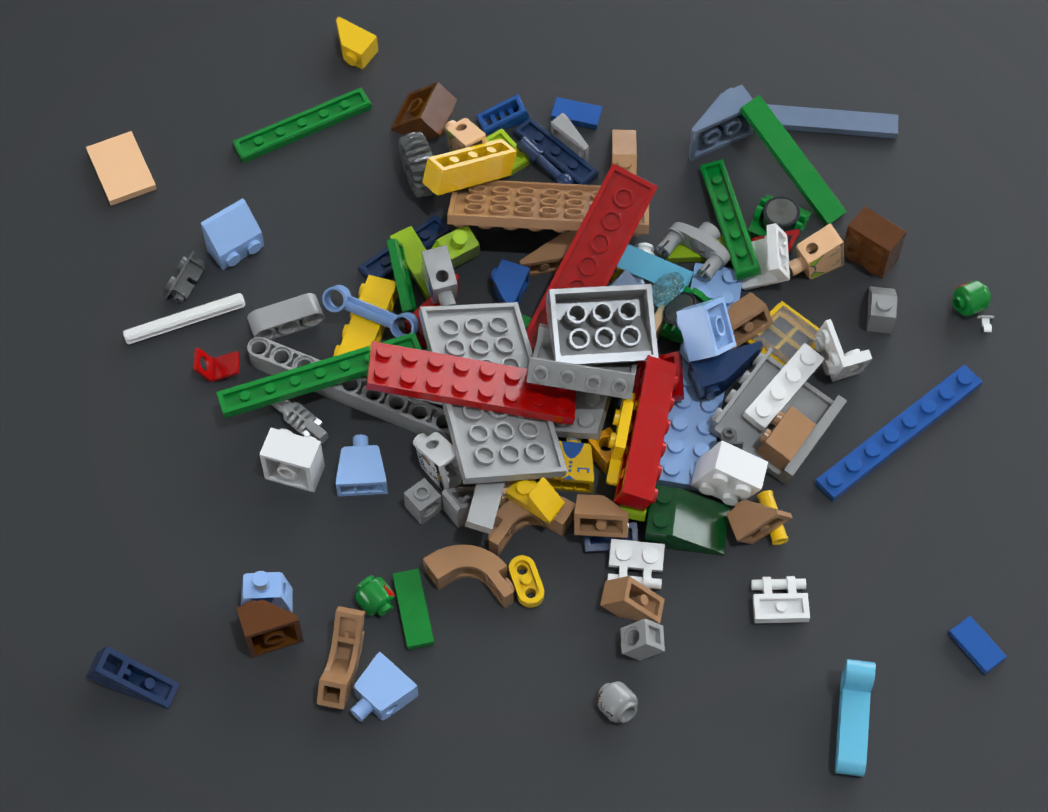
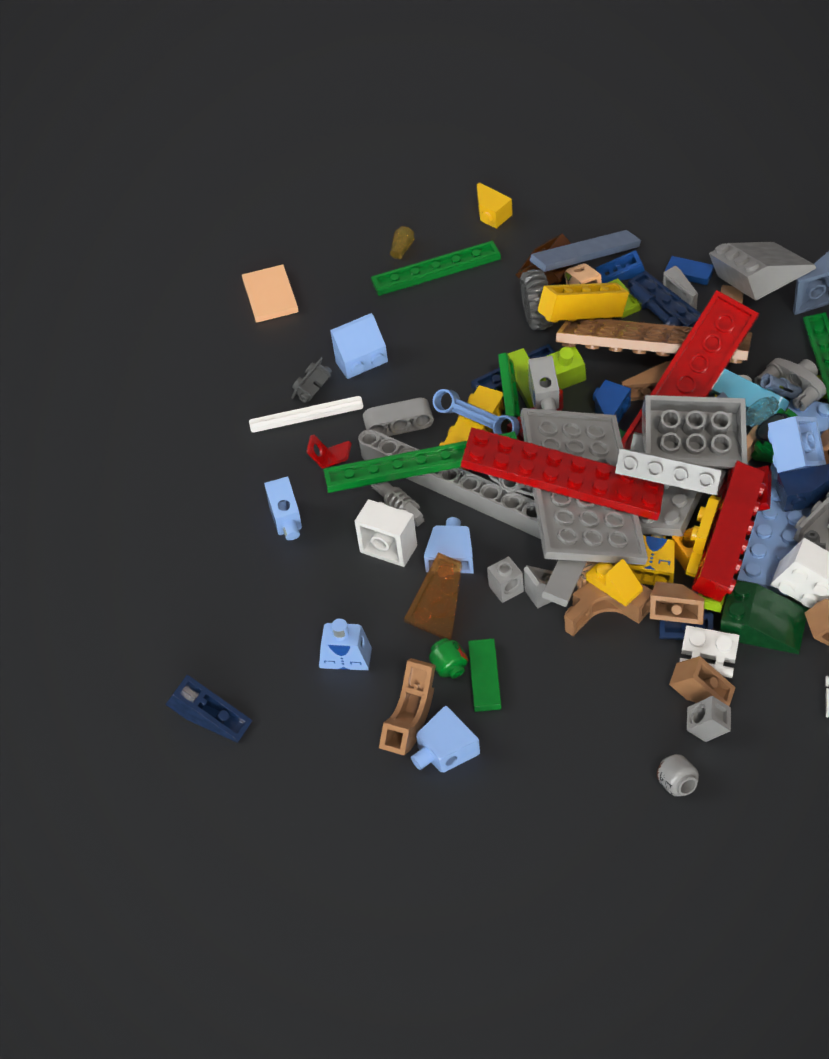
camera: 15 degrees right, 10 degrees down
(178, 439) = (286, 512): none -> light blue torso
(260, 95) = (401, 242): none -> clear yellow cone
(268, 627) = (342, 674): reddish brown slope -> none
(355, 529) = (437, 598): none -> clear orange wing
(434, 454) = (525, 543): white torso -> none
(464, 100) = (585, 250): none -> sand blue tile
(470, 562) = (543, 636): medium nougat arch -> none
(527, 582) = (599, 660): yellow plate -> none
(651, 111) = (758, 266): none -> light grey slope
(684, 257) = (772, 383): none -> sand blue pin

